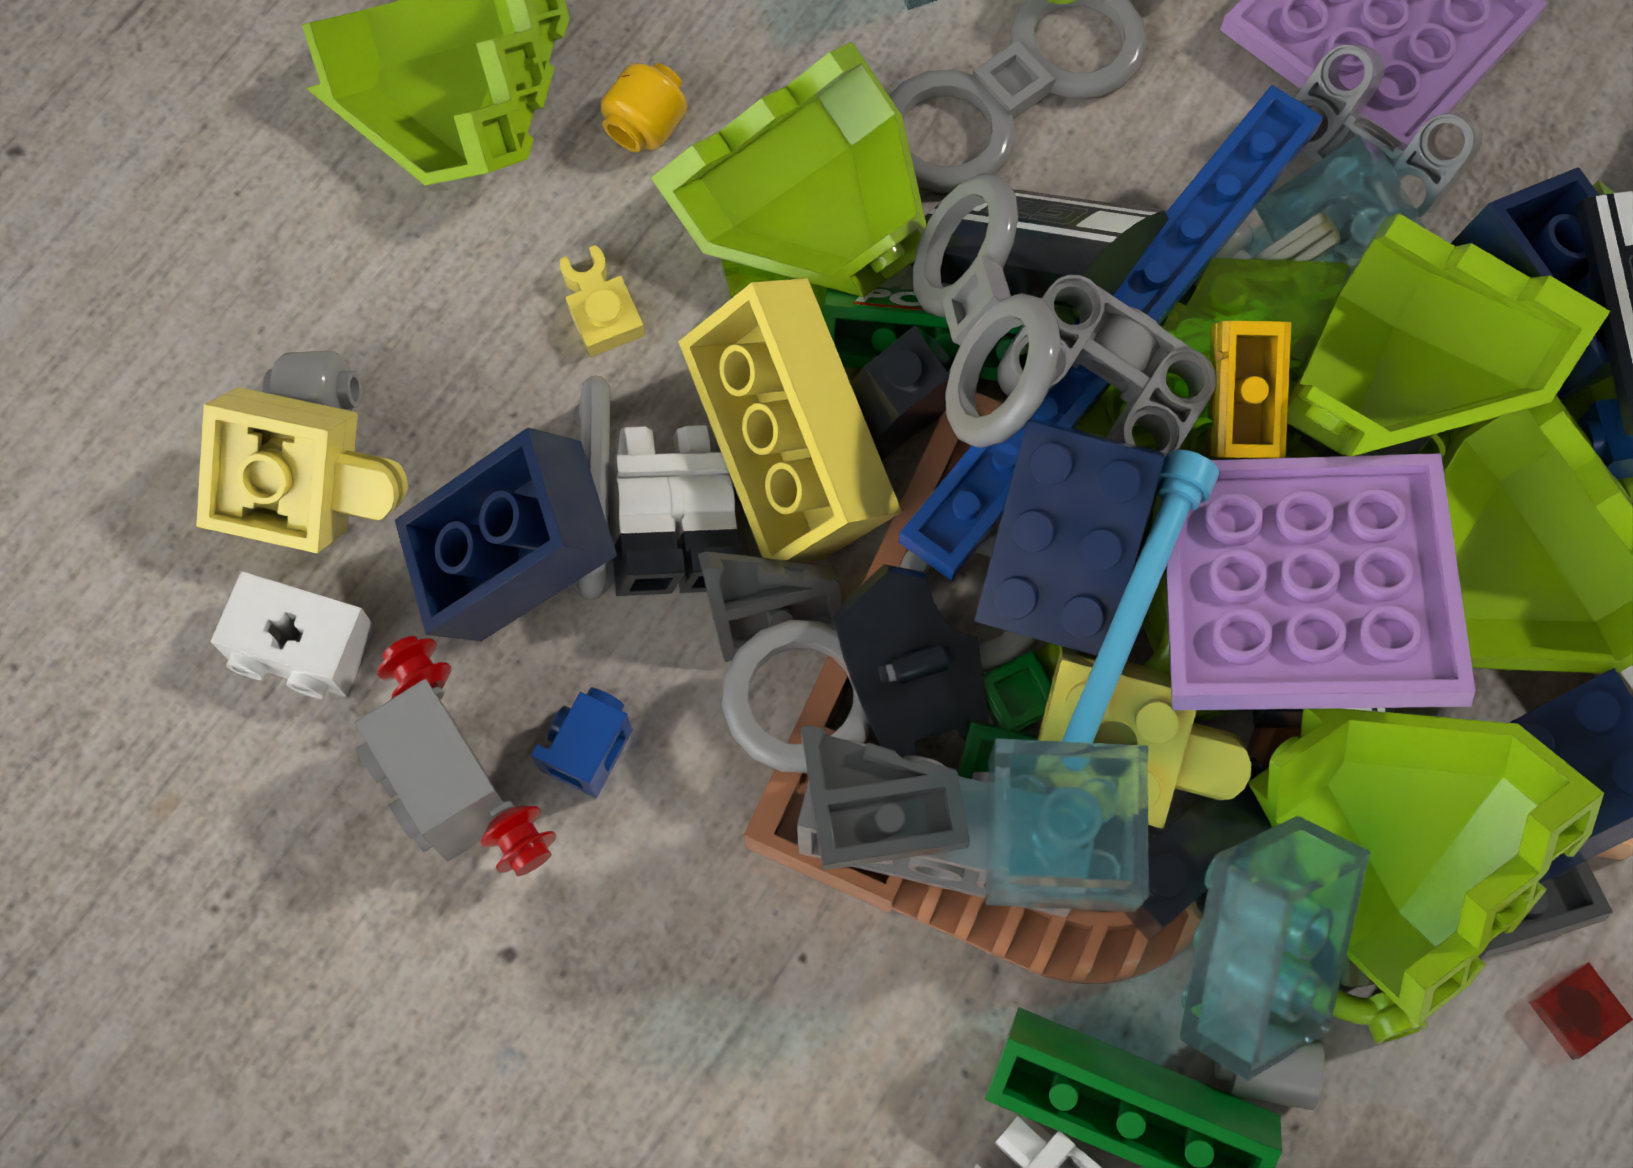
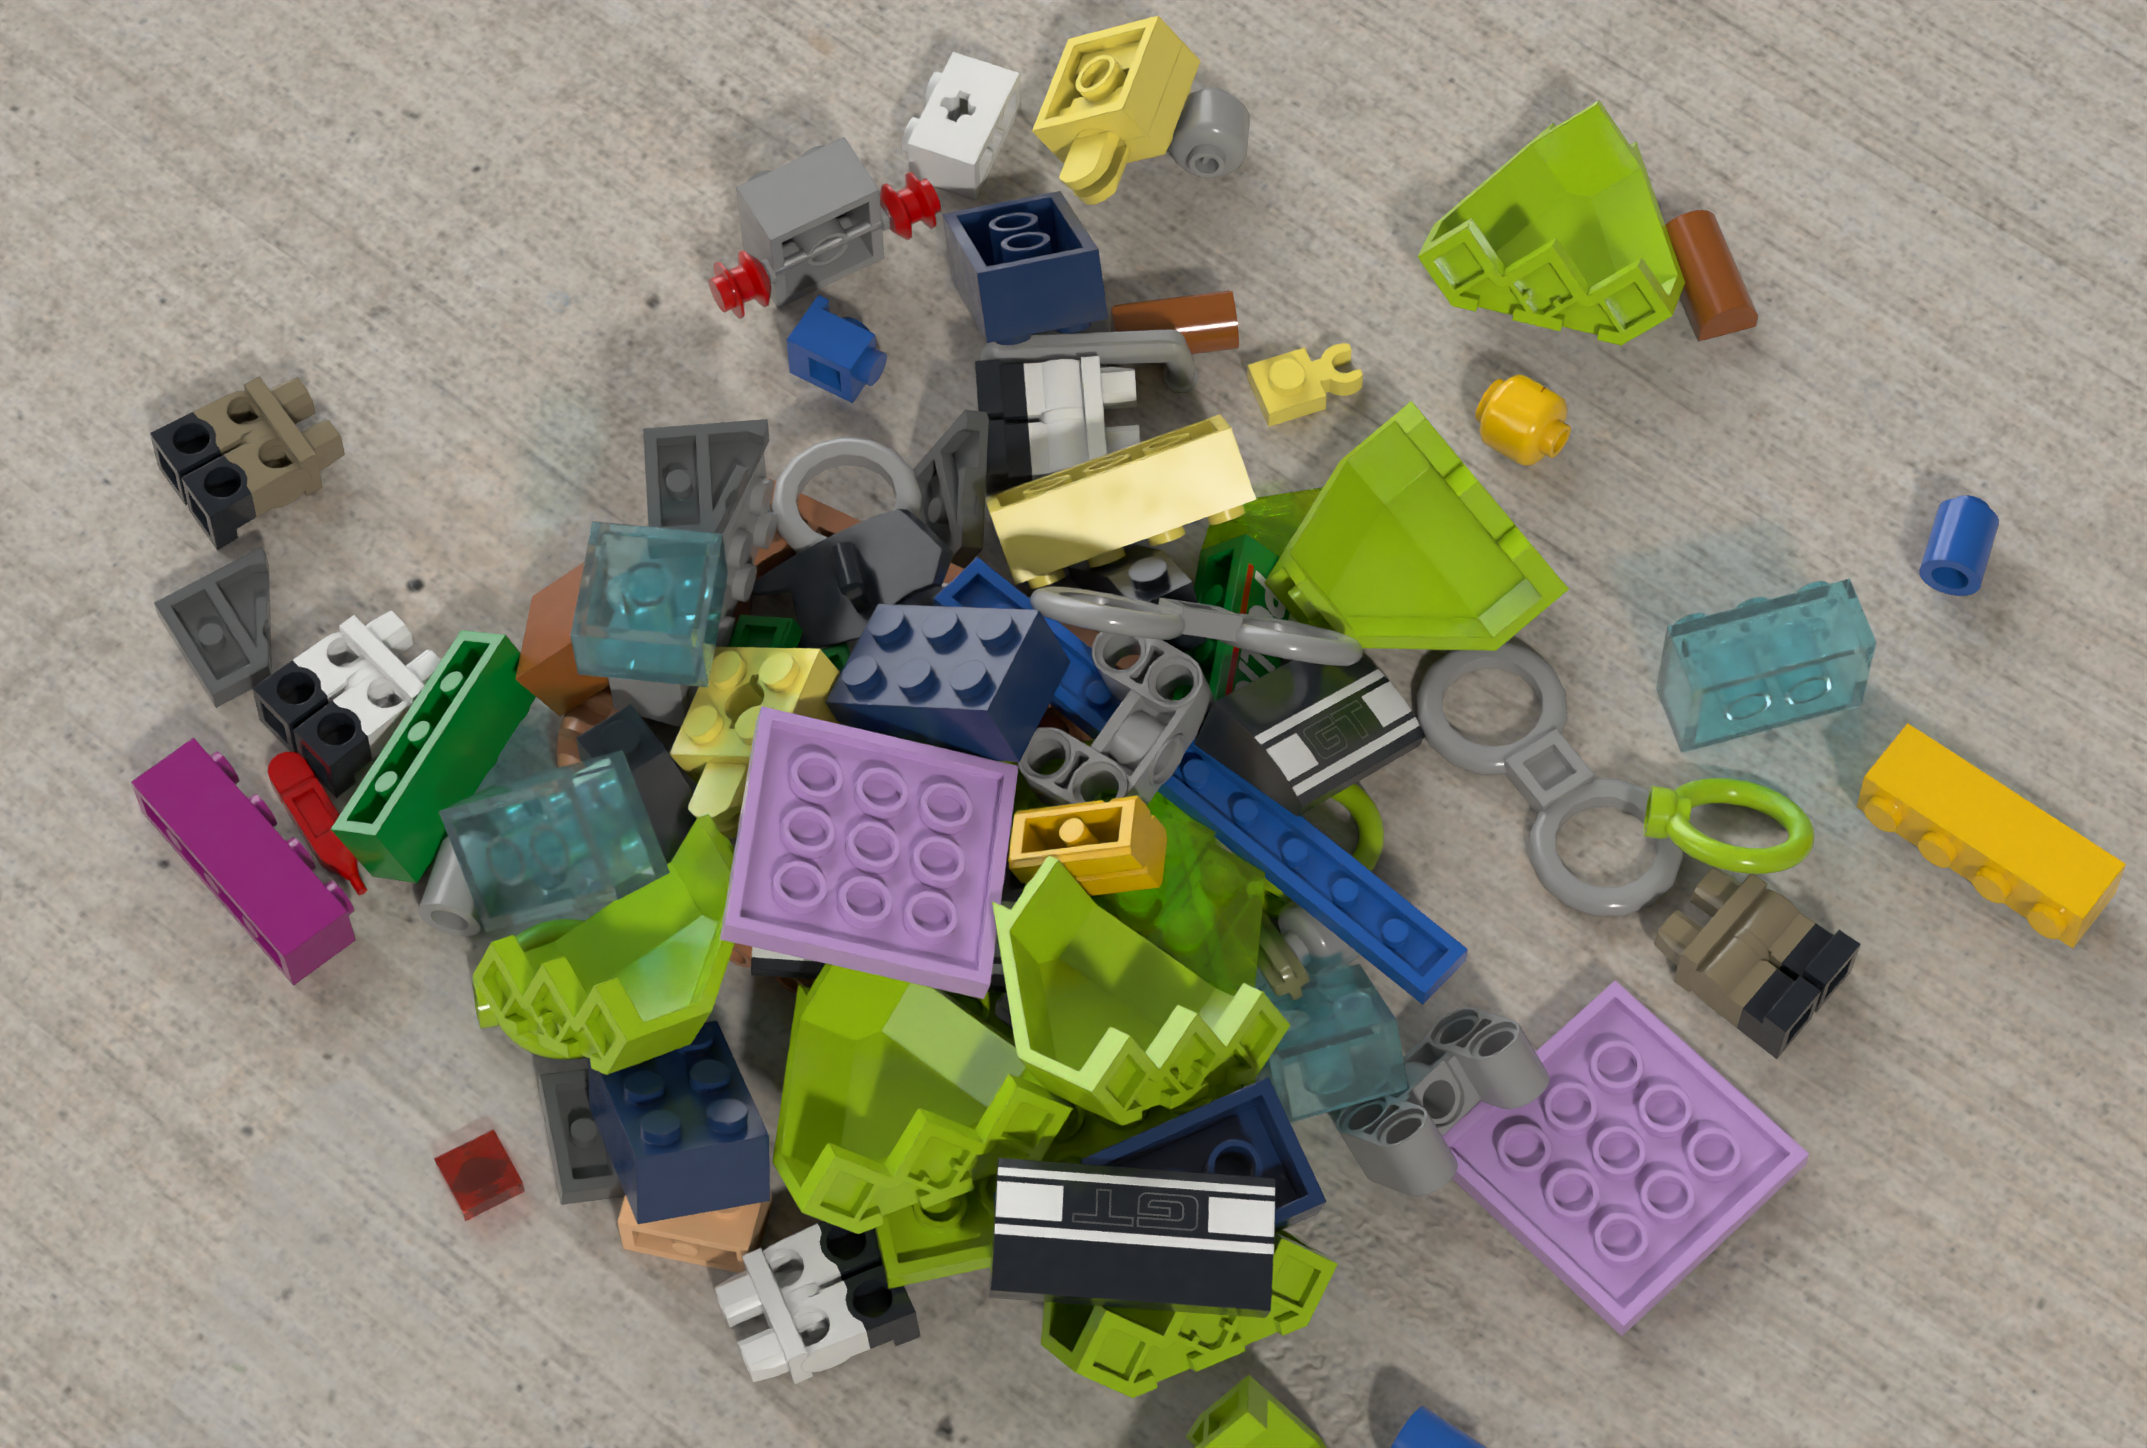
camera: 95 degrees right, 10 degrees down
(546, 391) = (1203, 319): none -> dark orange brick
(984, 971) = (547, 652): none -> dark orange brick
(1184, 484) = (977, 758): medium azure piece -> none

